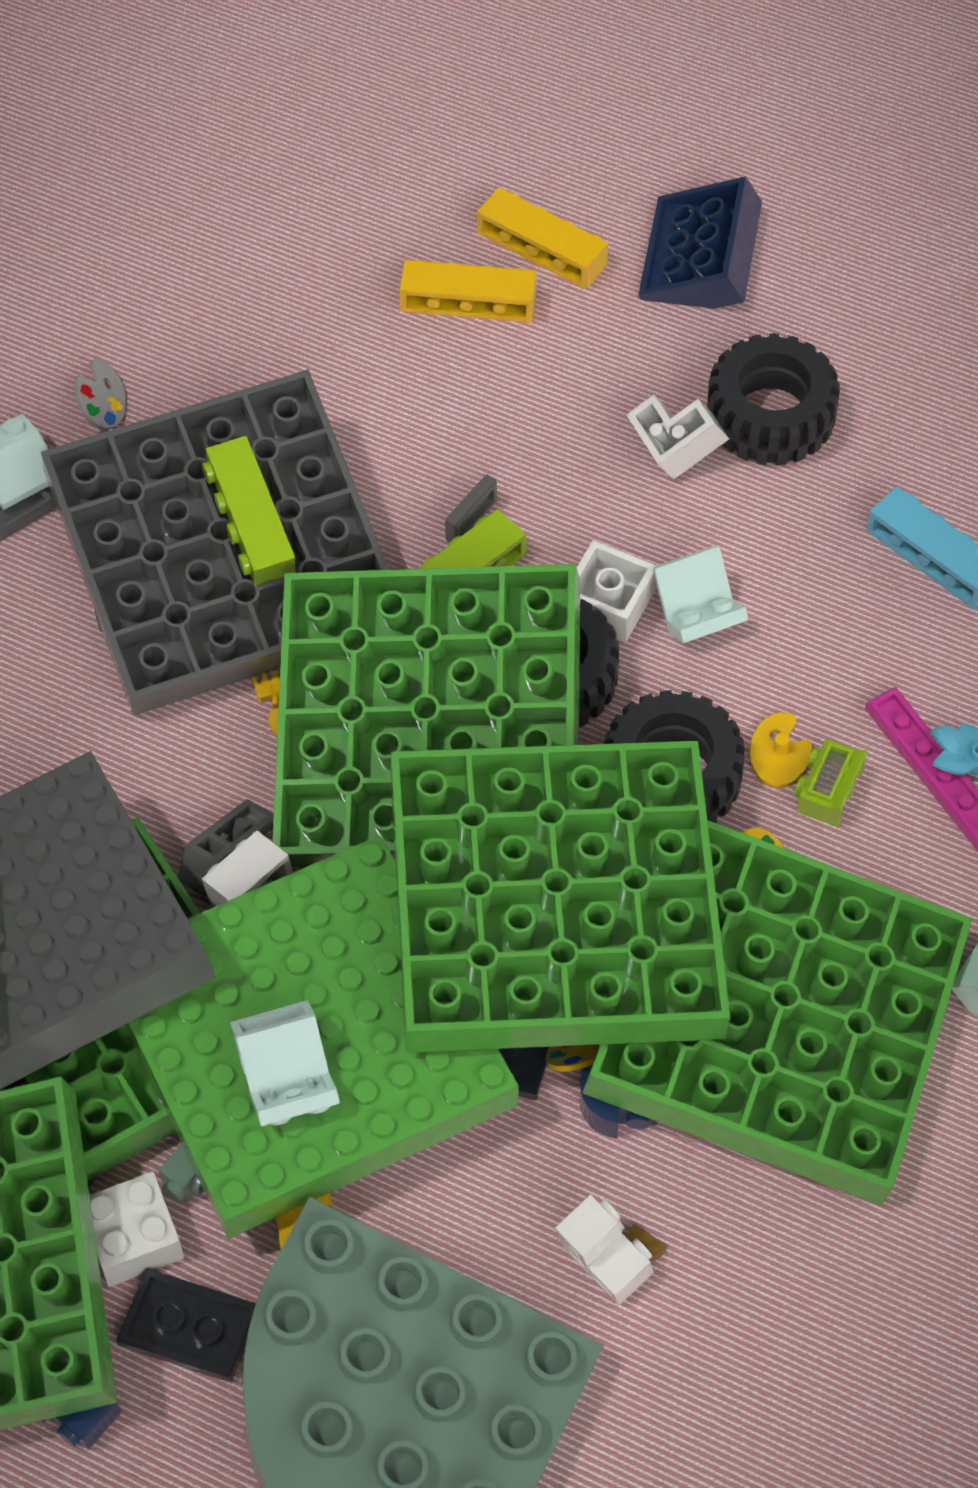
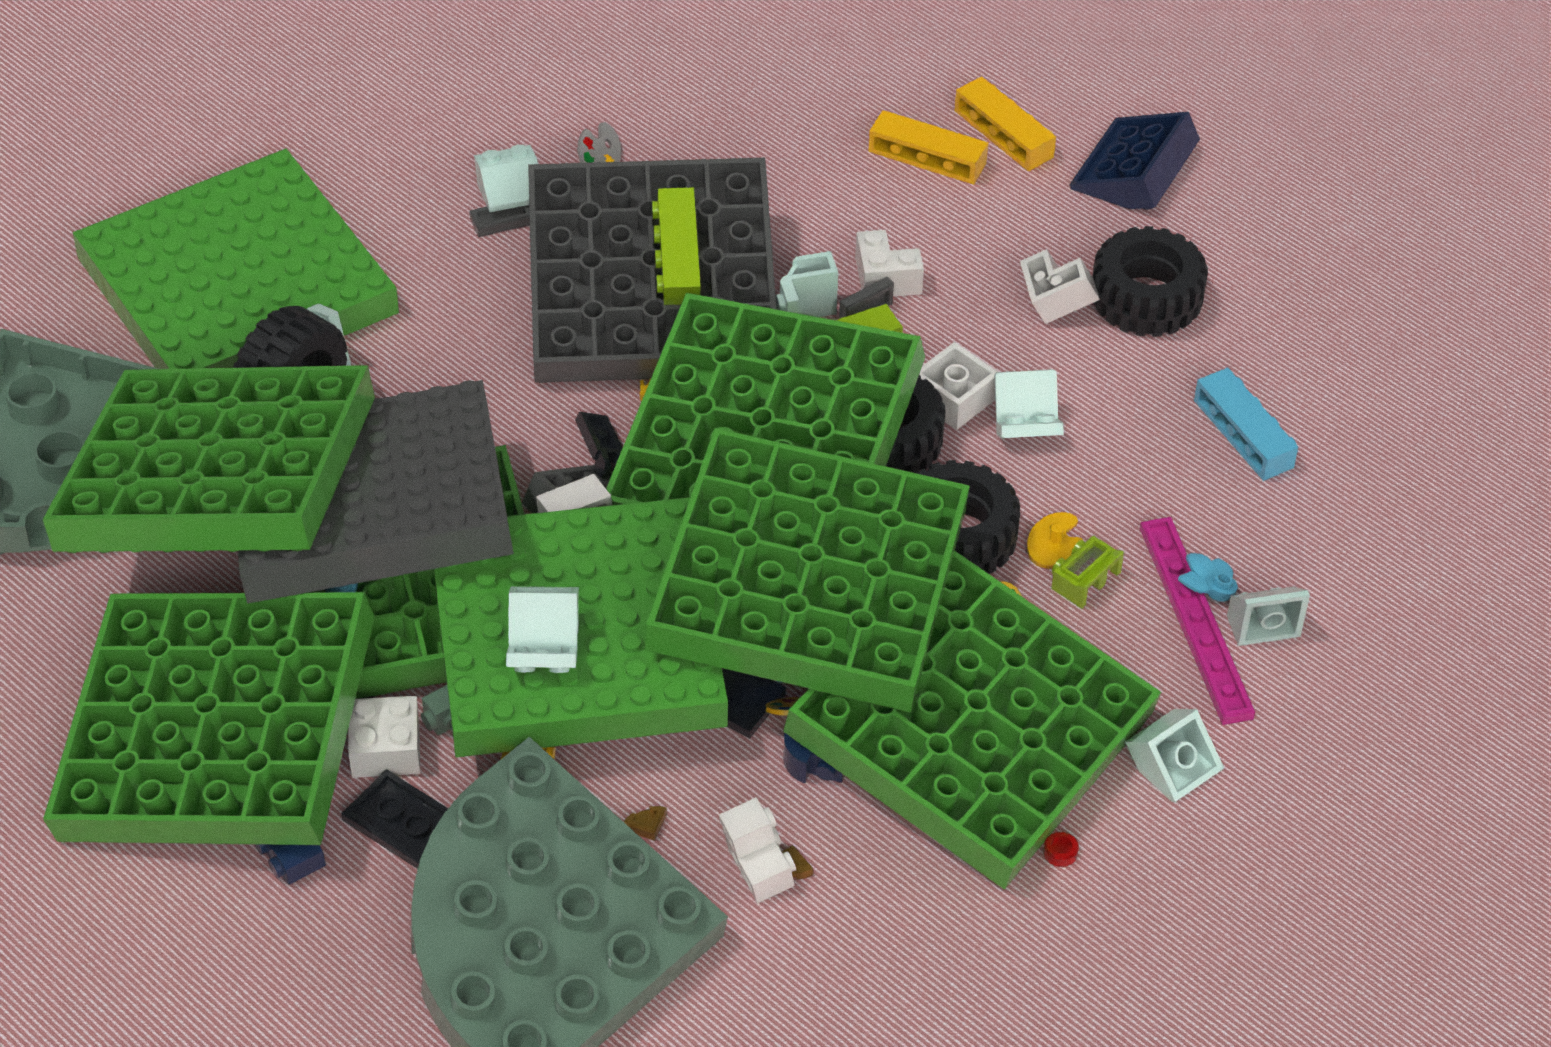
camera: 15 degrees right, 10 degrees down
(240, 776) = (600, 441): none -> black hinge
(406, 515) = (810, 286): none -> light aqua piece
(461, 1243) = (647, 822): none -> pearl gold tile
(470, 459) = (877, 262): none -> white brick
(924, 1137) = (1061, 849): none -> red tile

